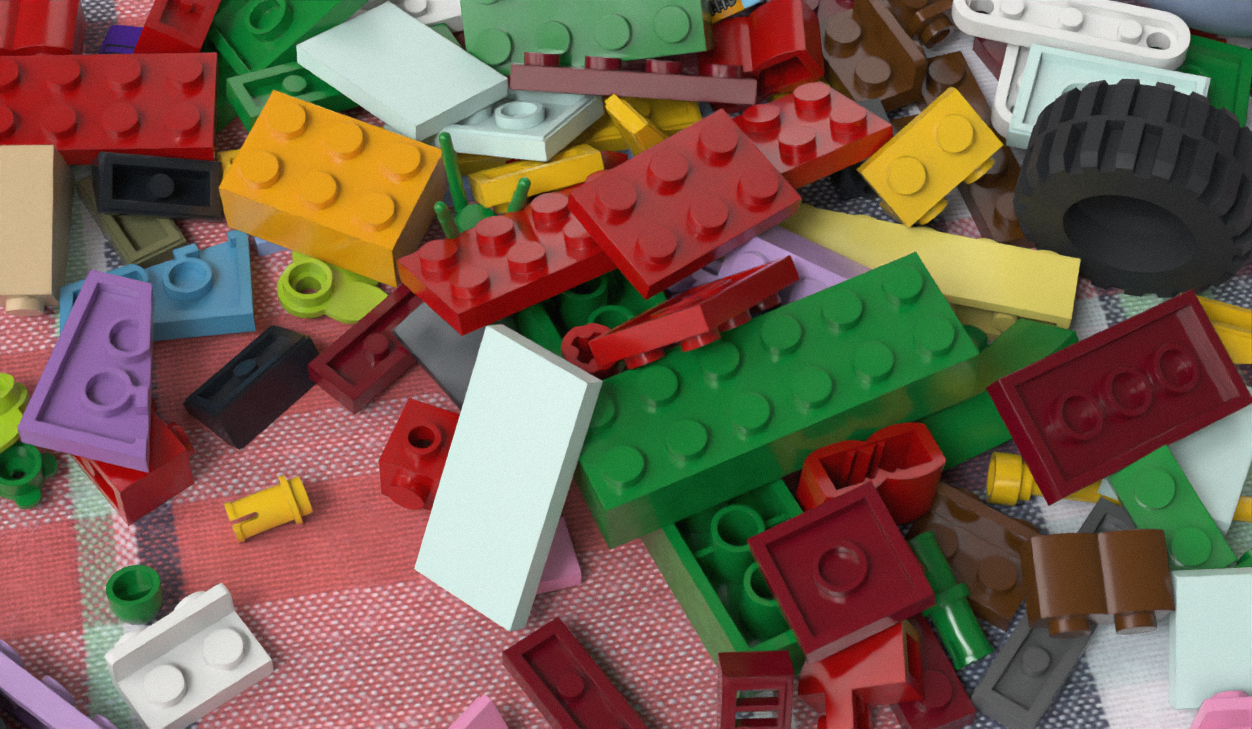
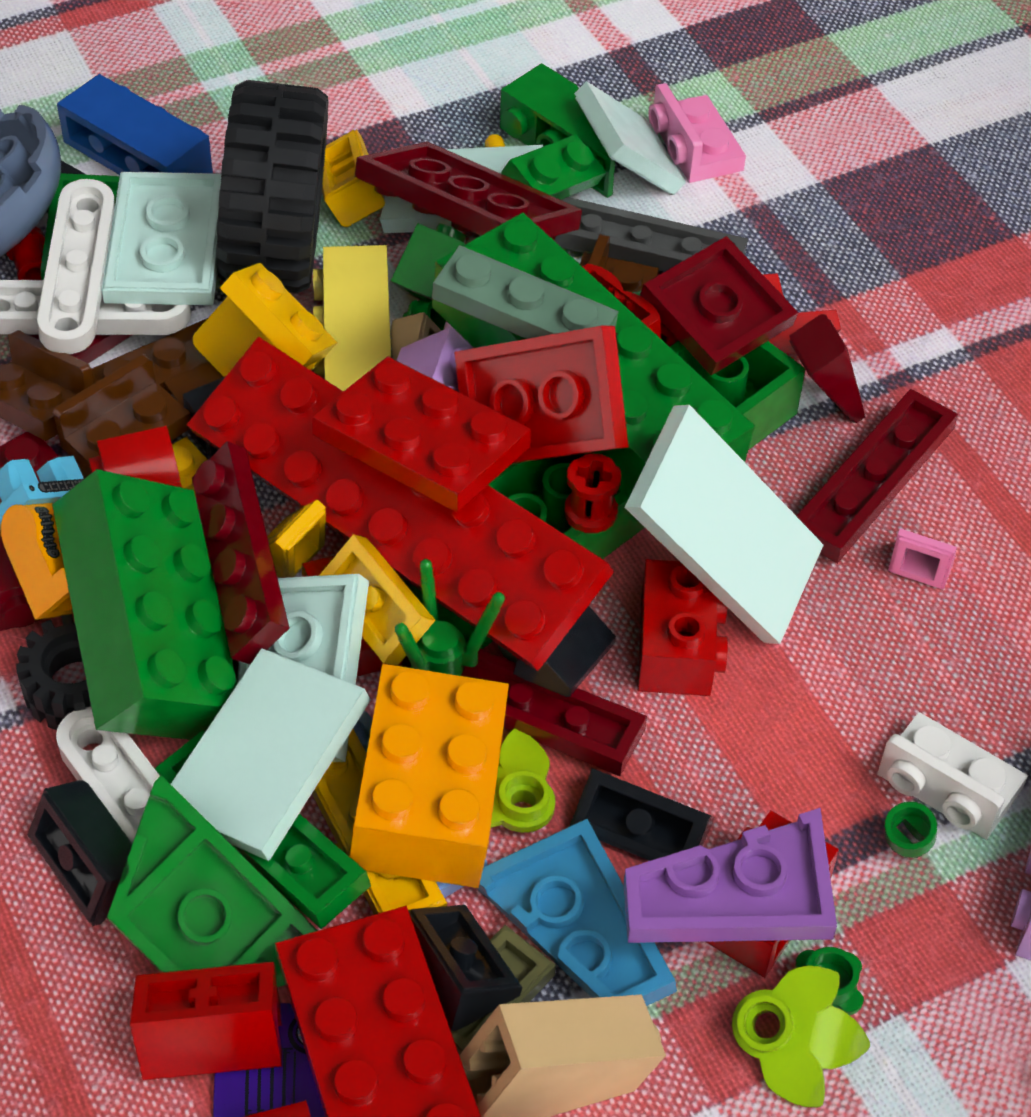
camera: 105 degrees left, 5 degrees down
(273, 507) = (776, 759): yellow pin -> none
(809, 303) = (514, 297): none -> sand green plate
(1096, 580) = (631, 198): reddish brown brick -> none

